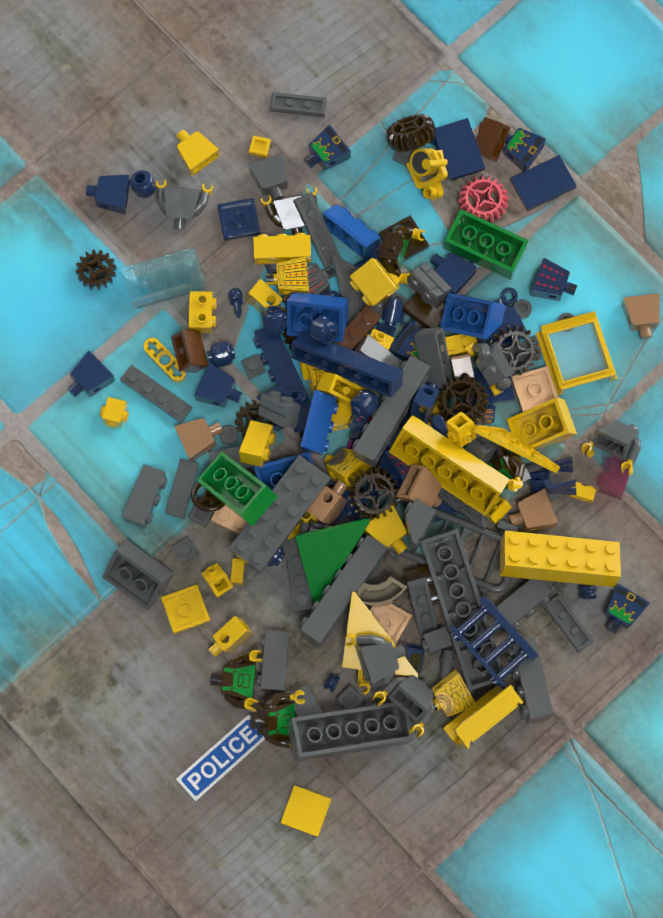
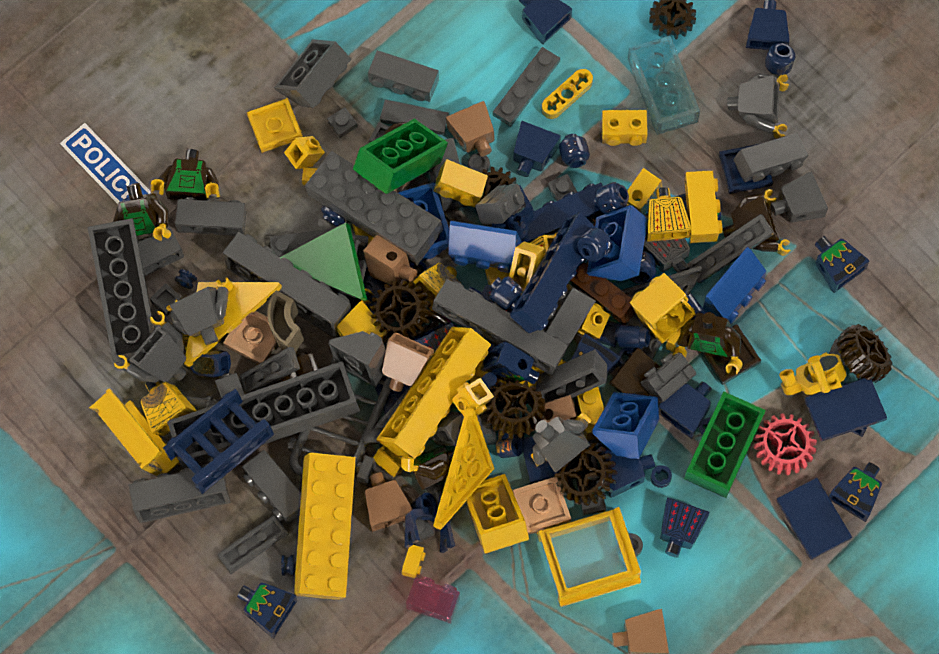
camera: 90 degrees right, 5 degrees down
(114, 413) = (501, 41): yellow brick -> none
(189, 351) = (576, 115): reddish brown brick -> none
(196, 151) = (826, 116): yellow torso -> none
(235, 195) = (771, 158): none -> dark grey brick
(235, 296) = (649, 164): dark blue bar -> none
(237, 632) = (240, 169): yellow torso -> none
(259, 146) = (839, 189): yellow tile -> none
(298, 104) = (898, 231): dark grey tile -> none
(305, 811) = (42, 255): yellow tile -> none
(491, 138) = (864, 449): reddish brown brick -> none
(523, 308) = (646, 492): dark grey tile -> none
(616, 440) = (473, 600): dark grey torso -> none

